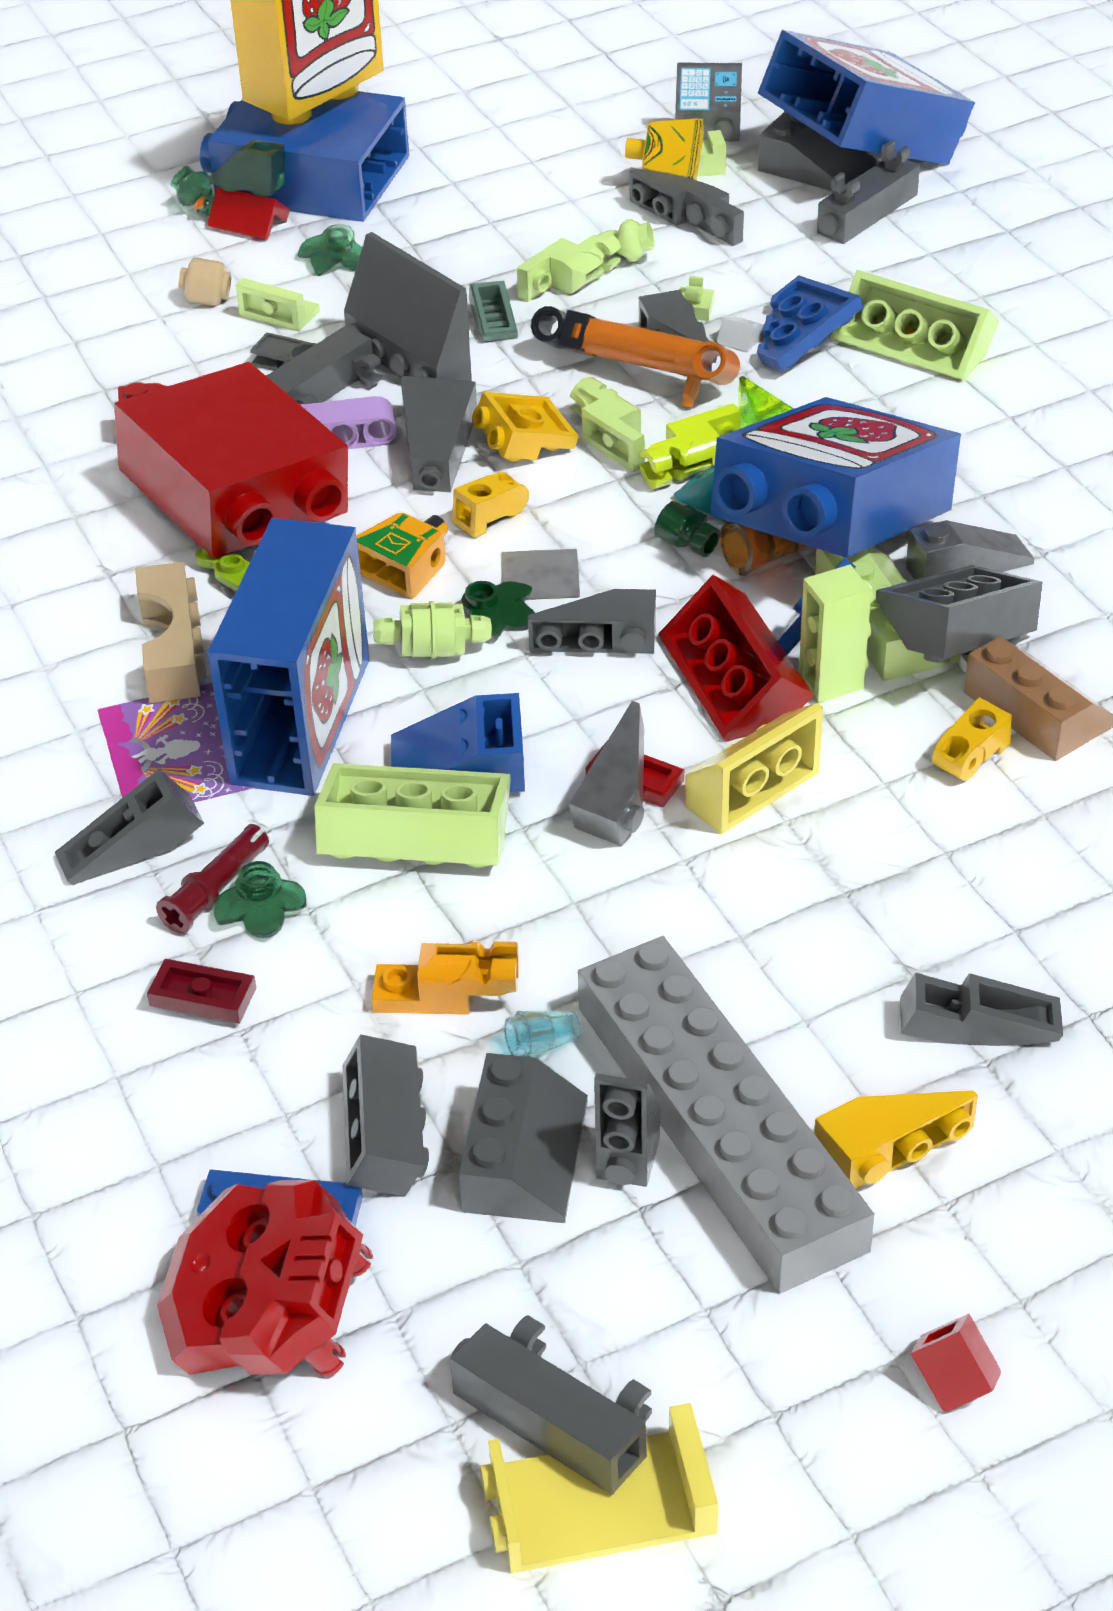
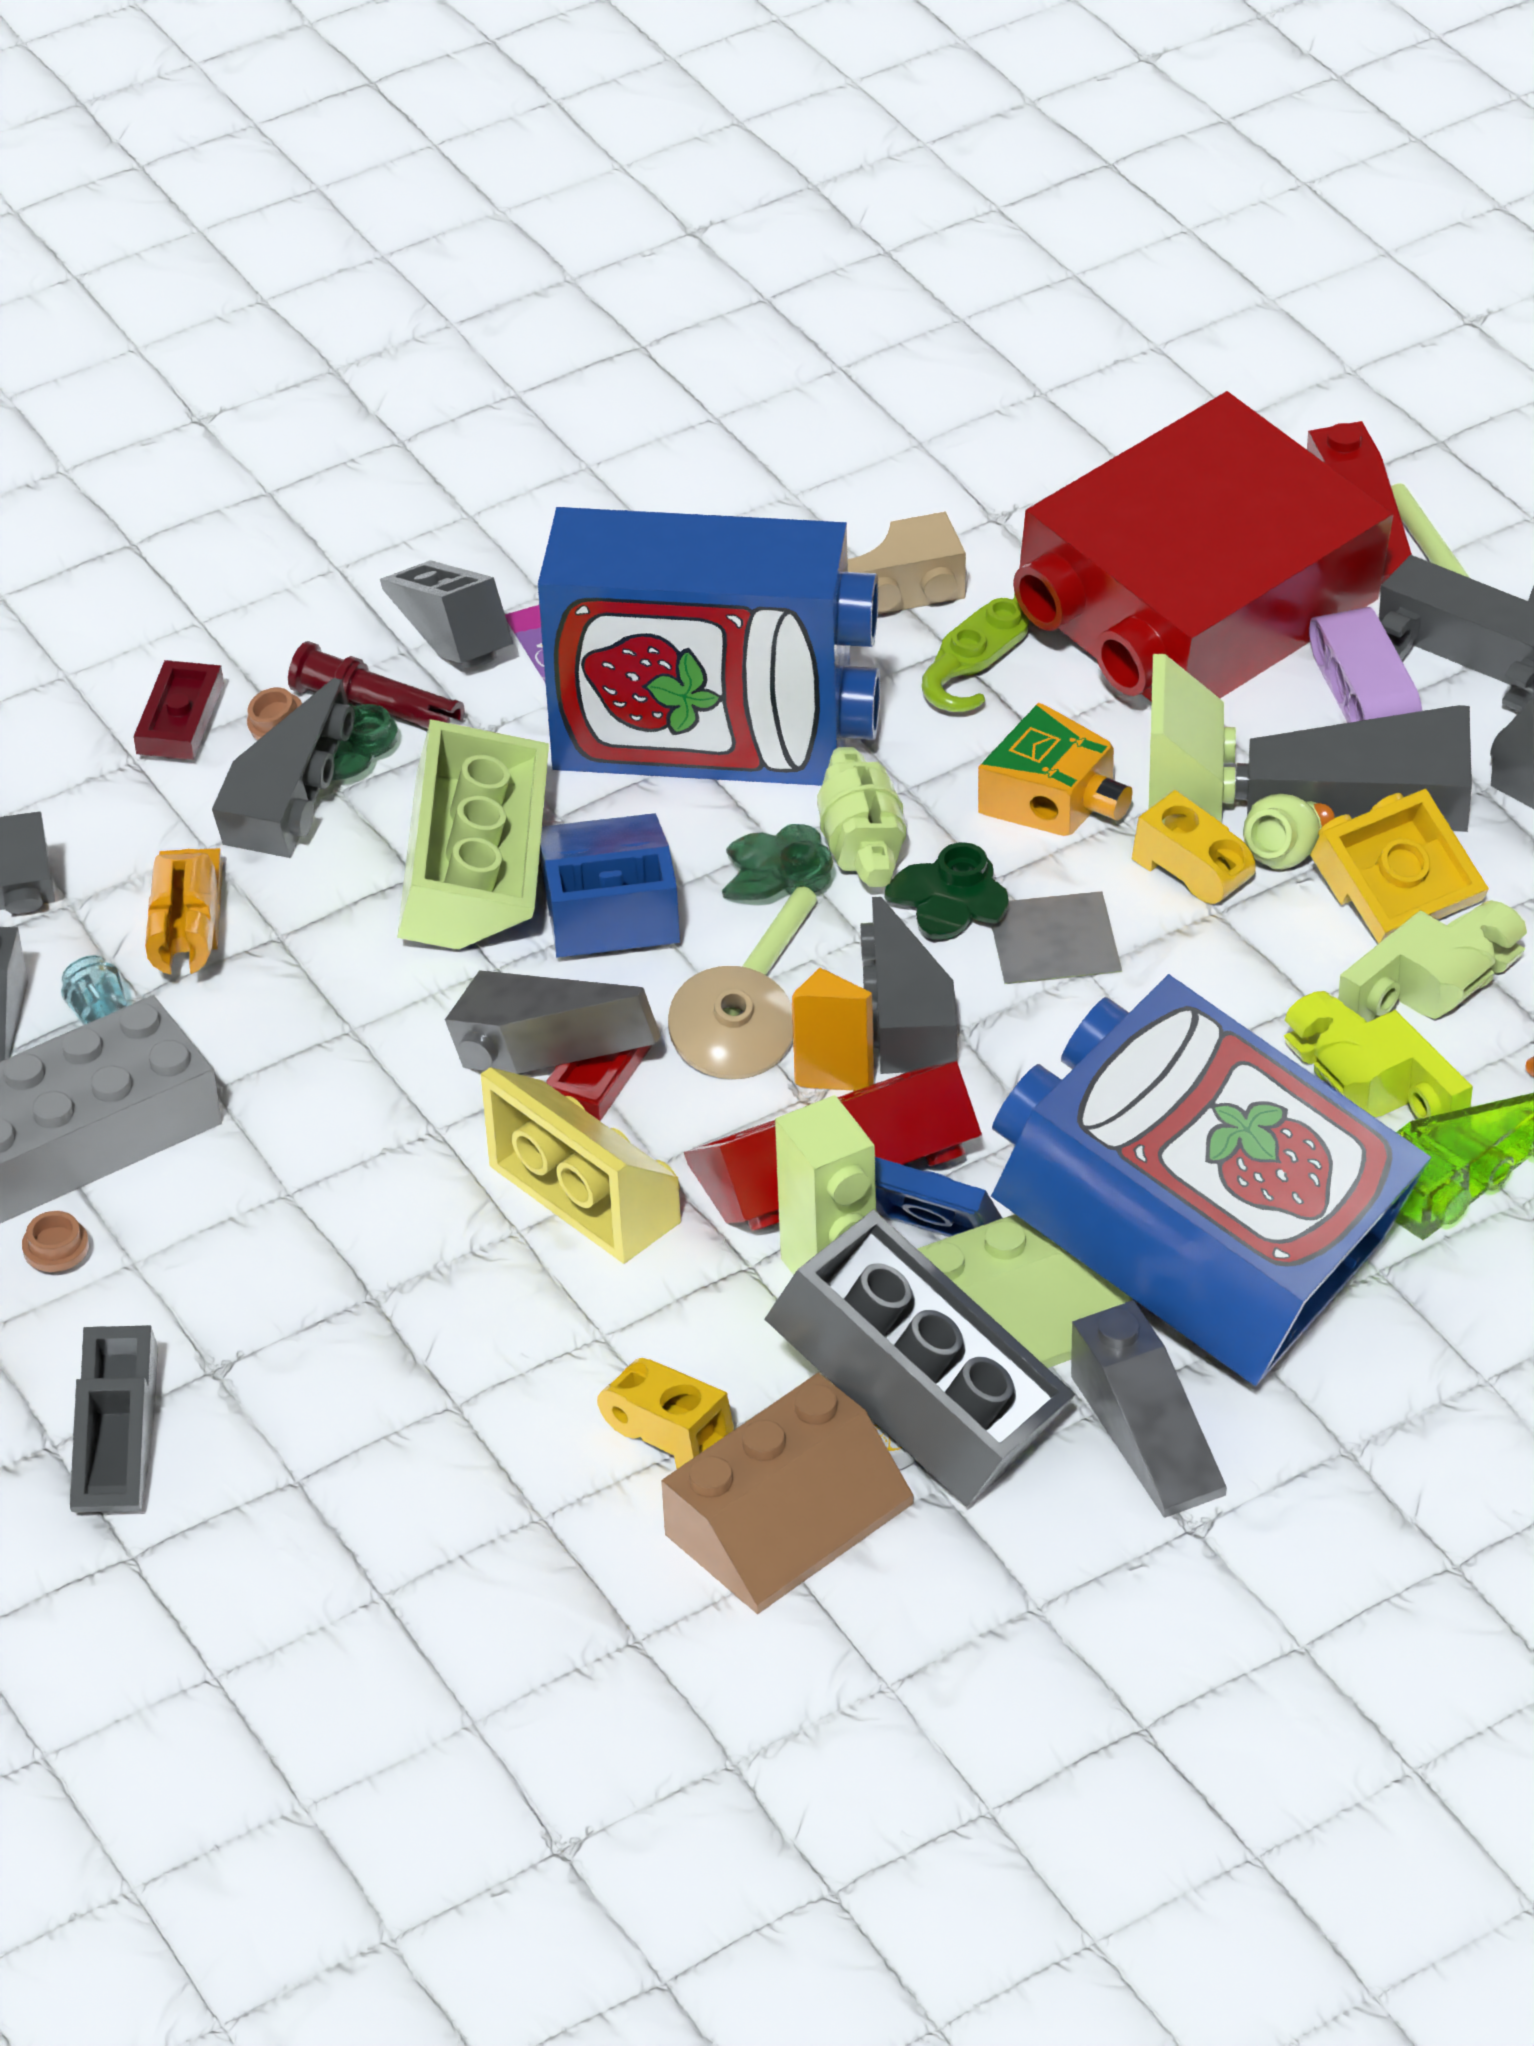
camera: 85 degrees right, 0 degrees up
(226, 934) = (269, 709): none -> nougat plate
(321, 917) = (277, 779): none -> dark grey slope
(404, 487) = (1189, 740): none -> yellowish green slope
(447, 680) = (778, 863): none -> clear green plate
(481, 459) = (1284, 829): none -> yellowish green animal
(540, 693) = (779, 934): none -> yellowish green bar
(603, 701) = (726, 1043): none -> tan dish
(654, 641) = (832, 1033): none -> light orange slope
(795, 1054) = (54, 1242): none -> nougat plate

